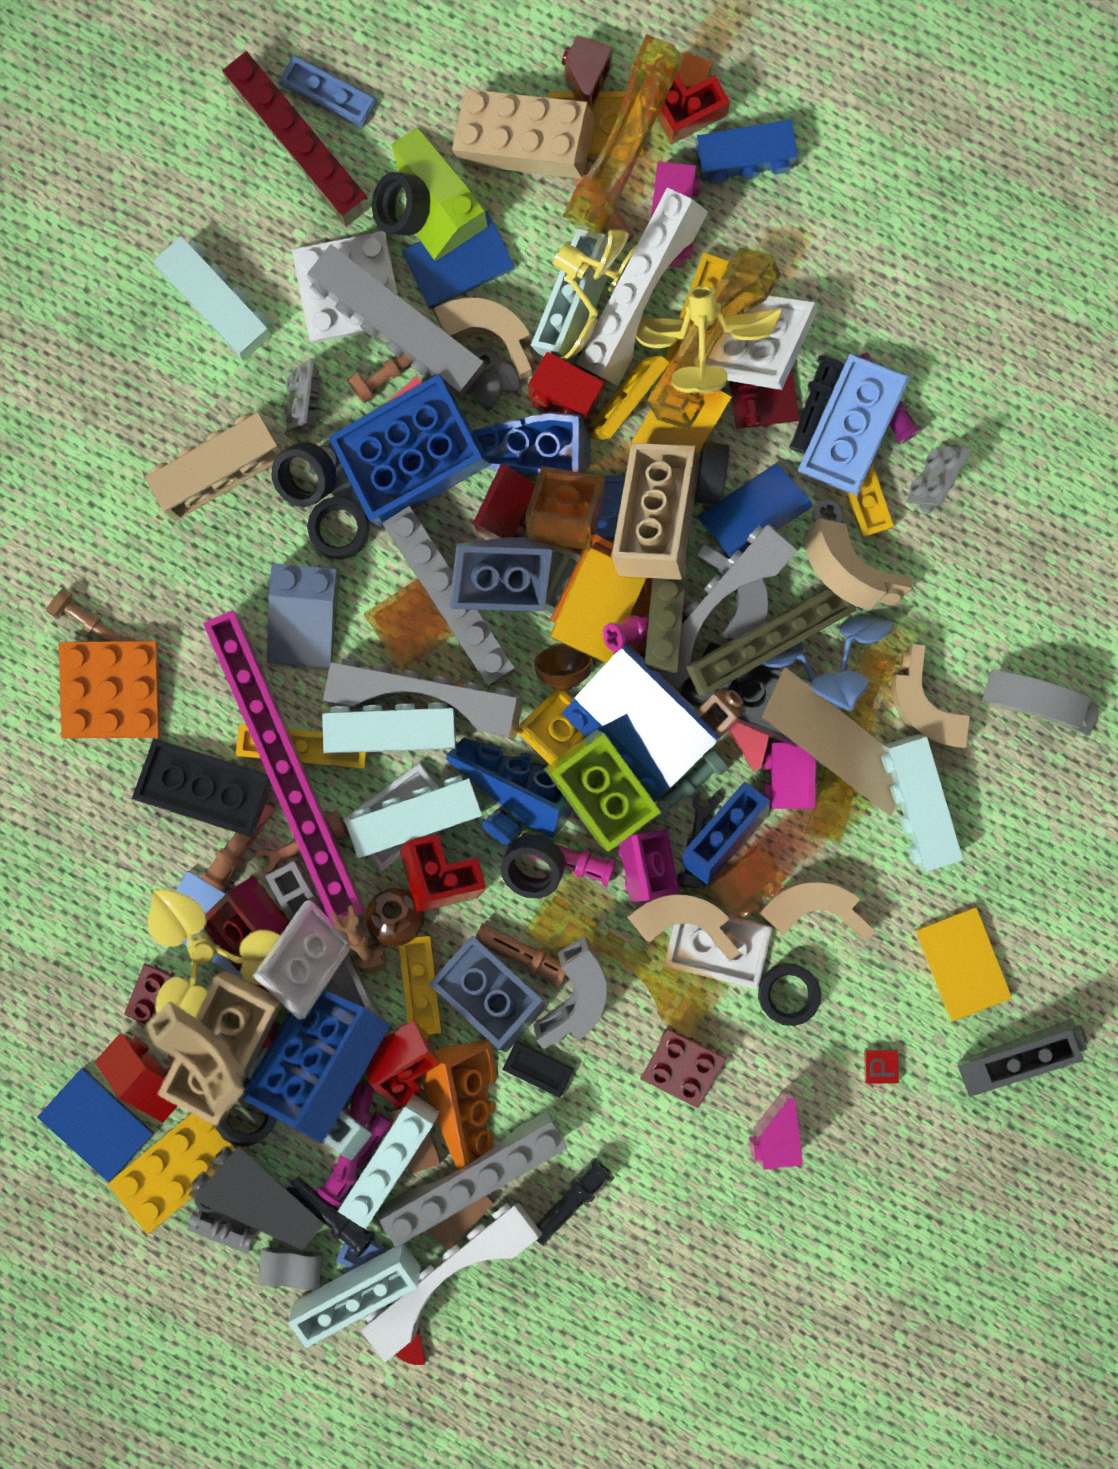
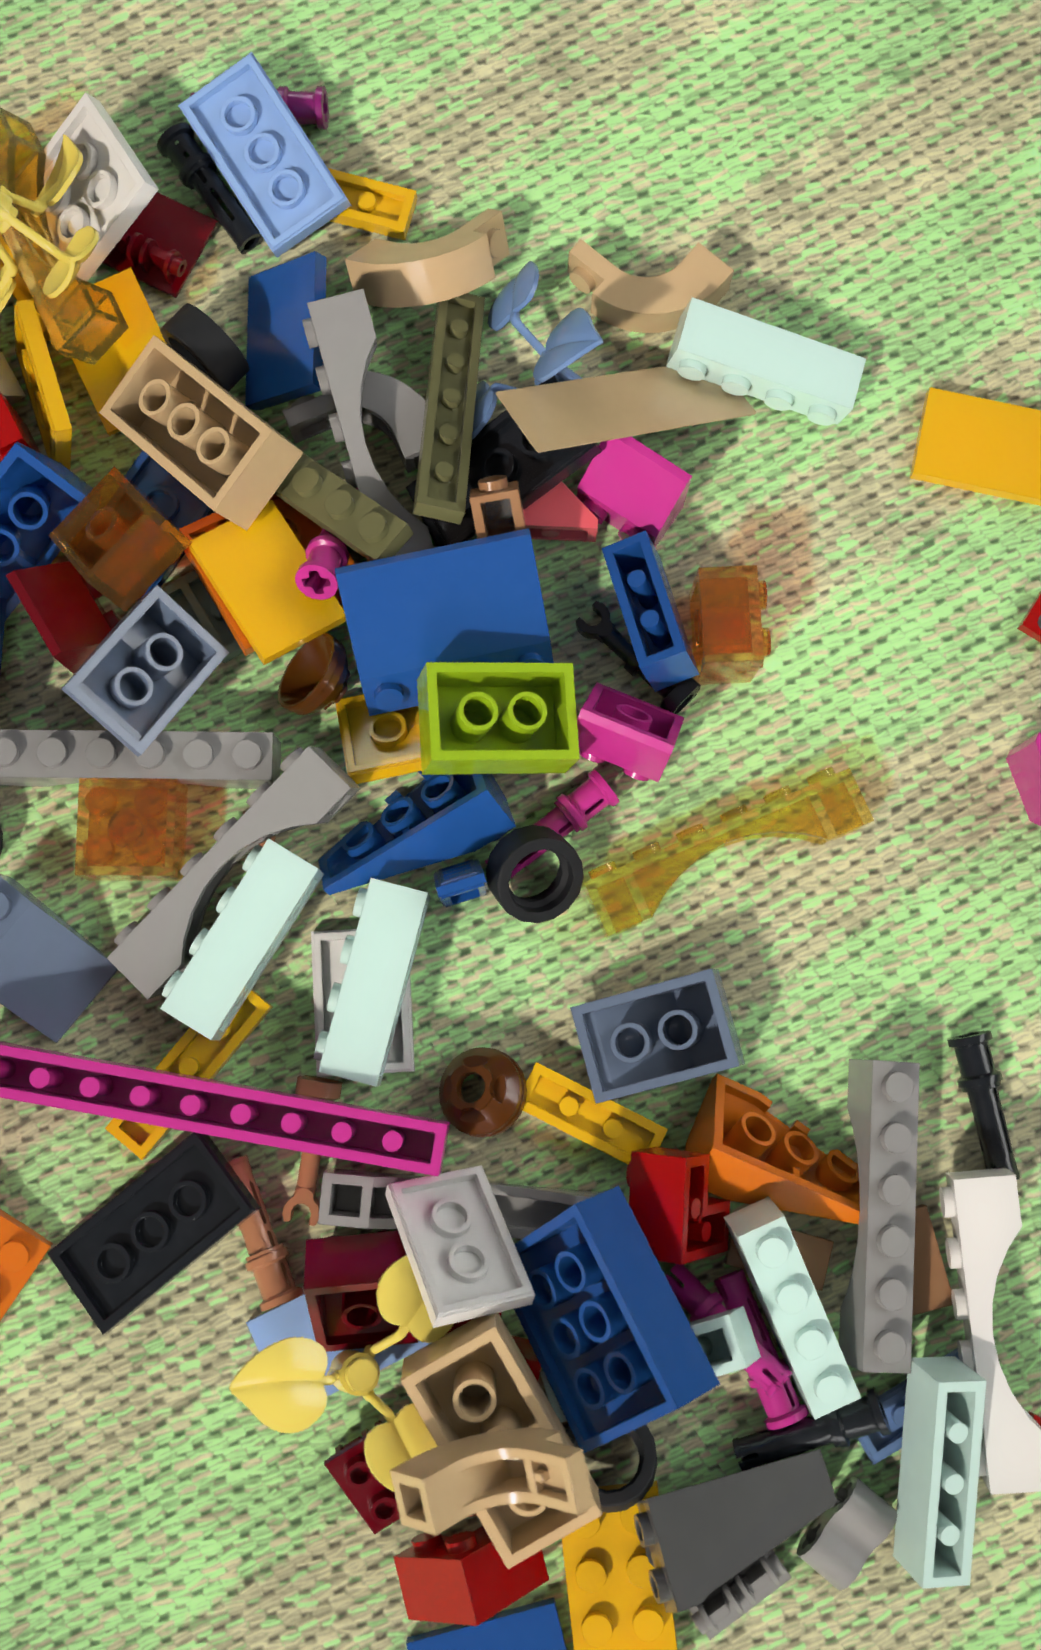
camera: 55 degrees left, 5 degrees down
(368, 958) = (512, 1159): medium nougat piece -> none
(436, 882) = (469, 1008): red brick -> none
(538, 1068) = (790, 1037): black tile -> none
(542, 963) = (654, 950): nougat pin -> none
(587, 1000) = (745, 916): light grey arch -> none
(674, 909) = (696, 757): tan arch -> none
(683, 1067) = (903, 855): dark red hinge -> none
(687, 786) = (556, 576): sand green piece -> none
(696, 953) = (779, 718): white tile -> none
(805, 897) = (790, 601): tan arch -> none
(811, 1005) = (905, 635): black tyre -> none
(833, 794) = (717, 479): clear yellow arch -> none
(837, 511) = (338, 249): light grey bush -> none
(937, 477) = (393, 102): light grey hinge -> none
(1041, 700) = (730, 152): light grey arch -> none

